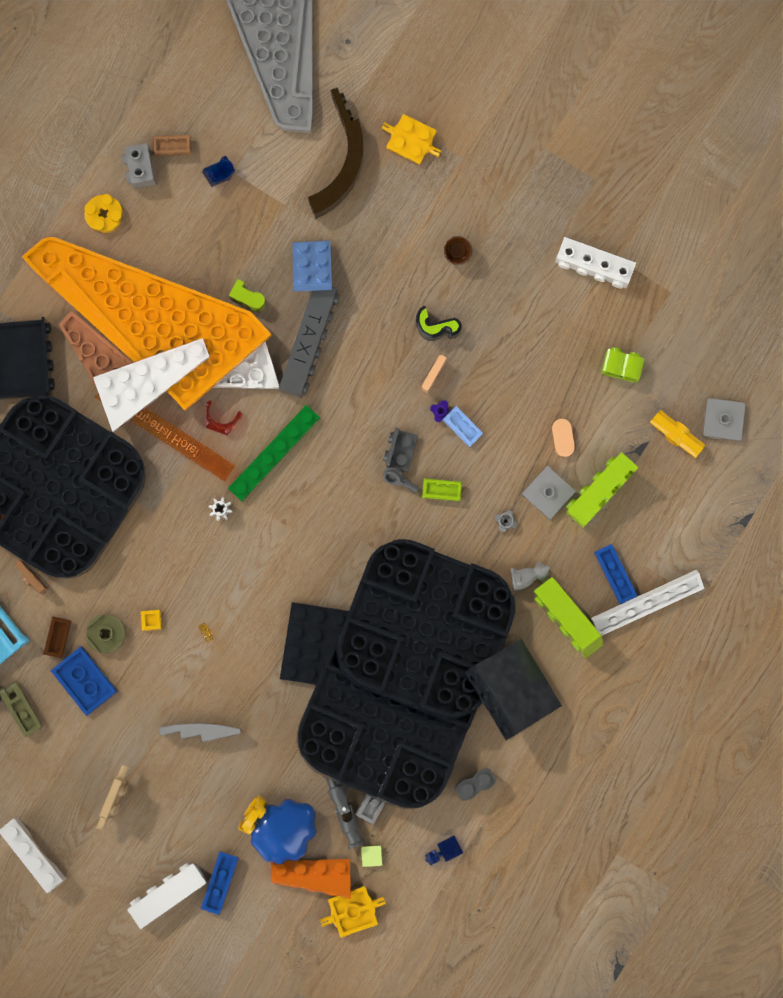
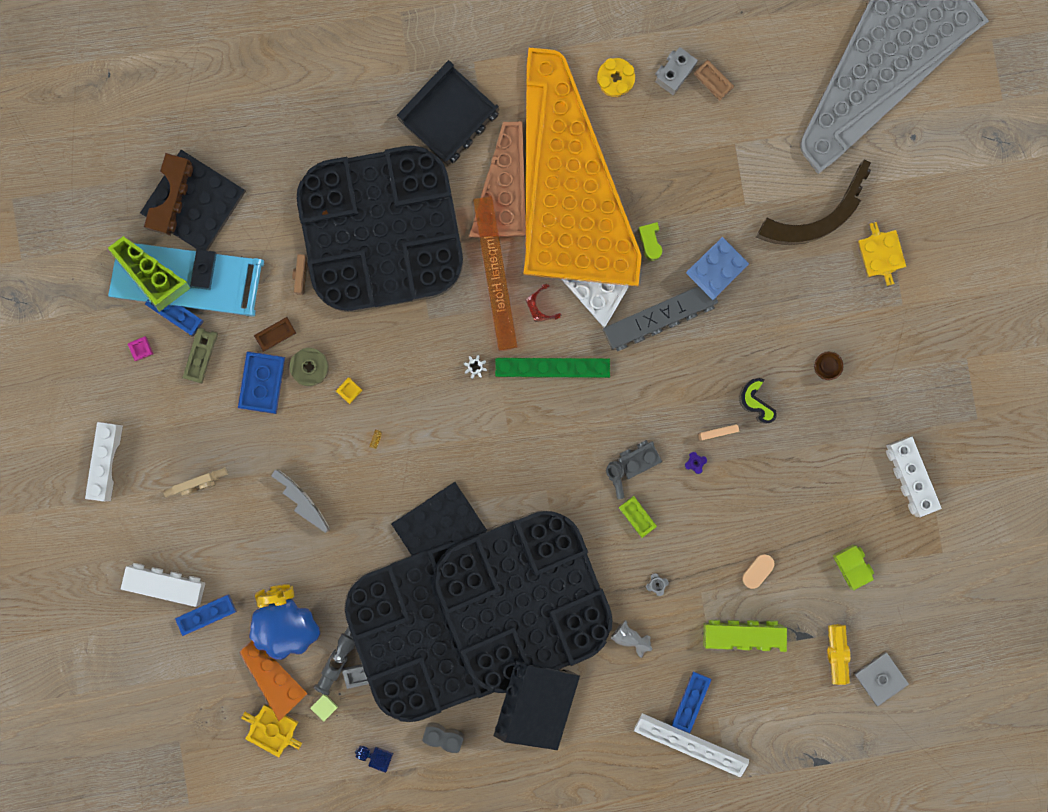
camera: 50 degrees right, 5 degrees up
(140, 383) = (512, 223): white wing -> none
(219, 172) = (725, 133): clear blue bracket -> none
(462, 426) = (698, 489): light blue plate -> none
(548, 492) = (707, 597): light grey plate -> none
(569, 617) = (627, 696): lime wedge -> none

